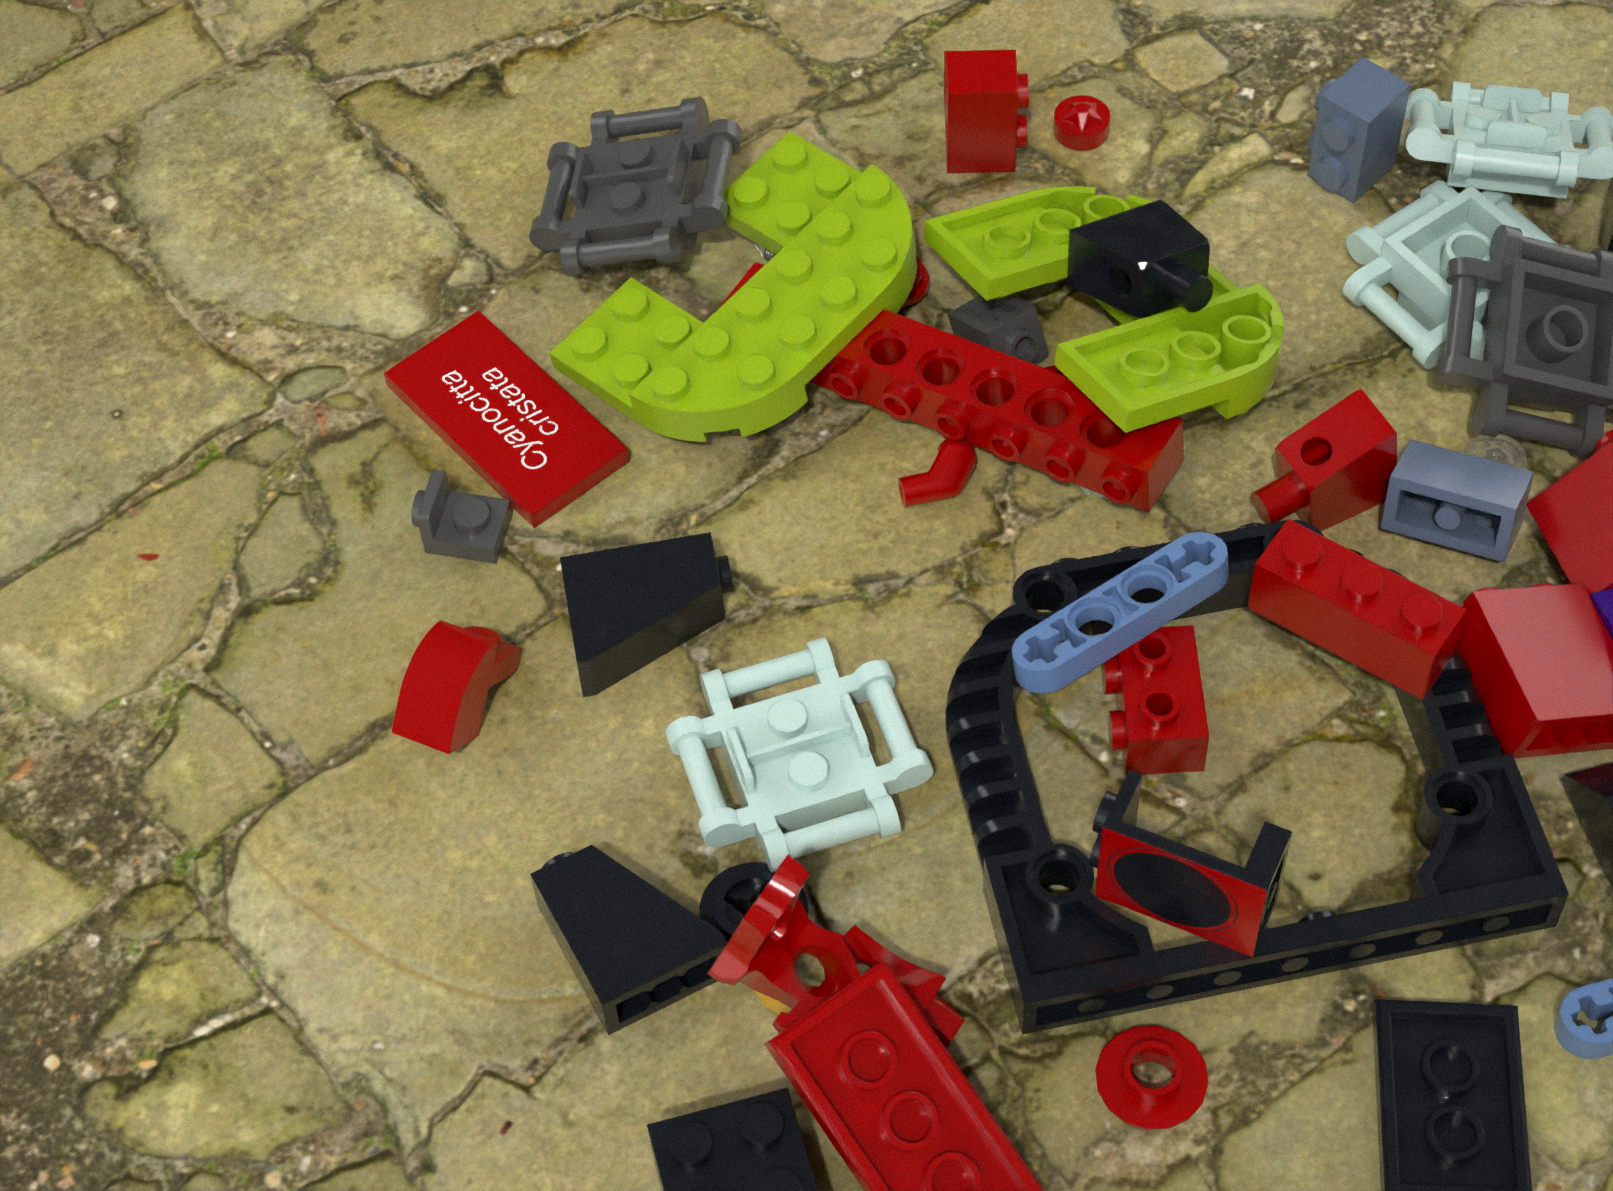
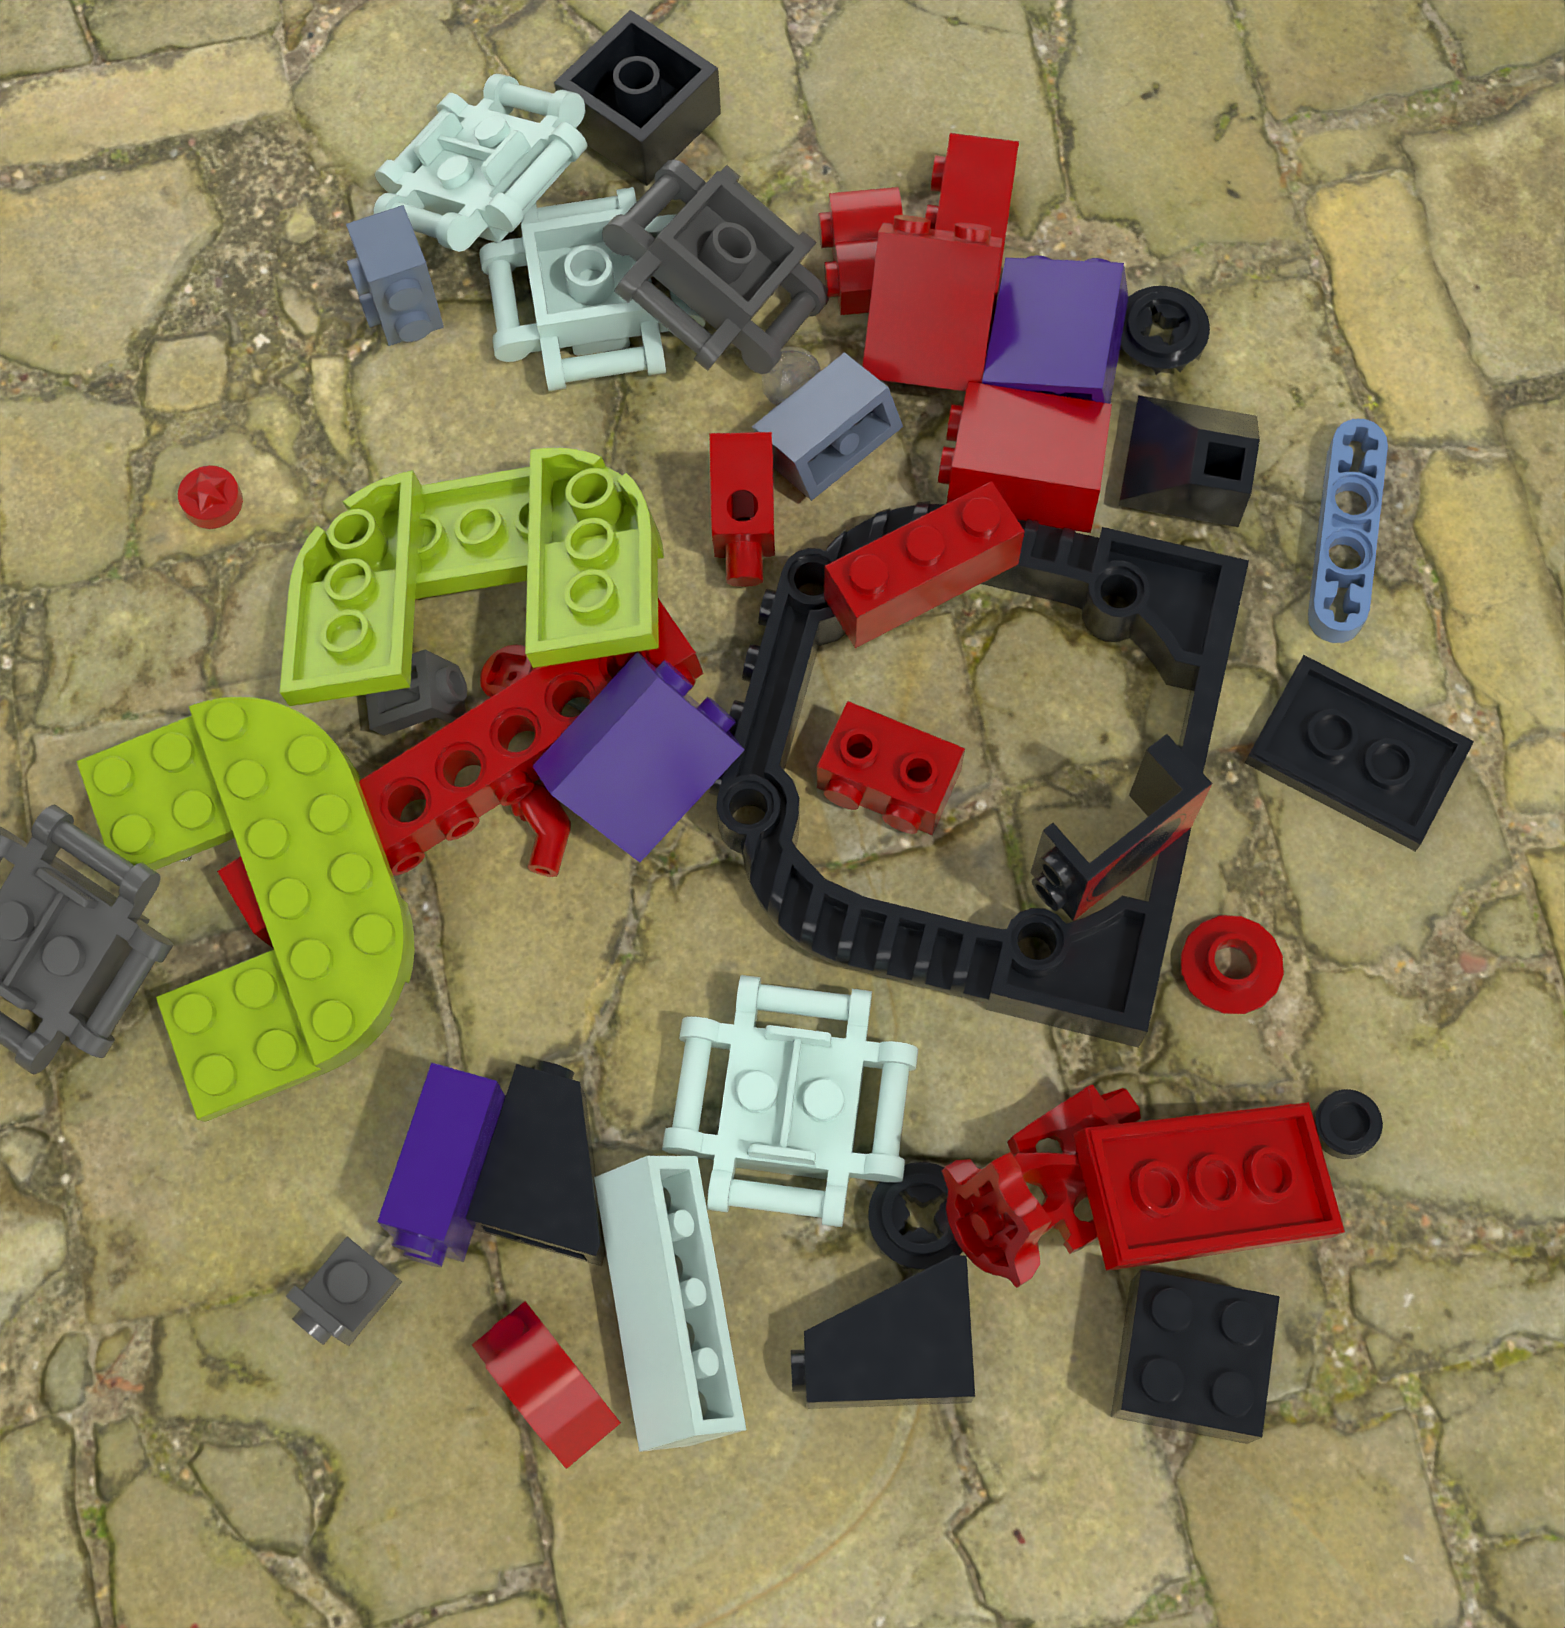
camera: 65 degrees left, 15 degrees up
(507, 418) = (234, 1196): red tile -> none
(568, 740) = (669, 1303): none -> light aqua brick
(586, 511) = (441, 1165): none -> dark purple brick
(982, 110) = (148, 571): red brick -> none
(1031, 485) = (639, 755): none -> dark purple brick
(1114, 605) = (810, 752): medium blue beam -> none
(1141, 261) = (457, 530): black torso -> none

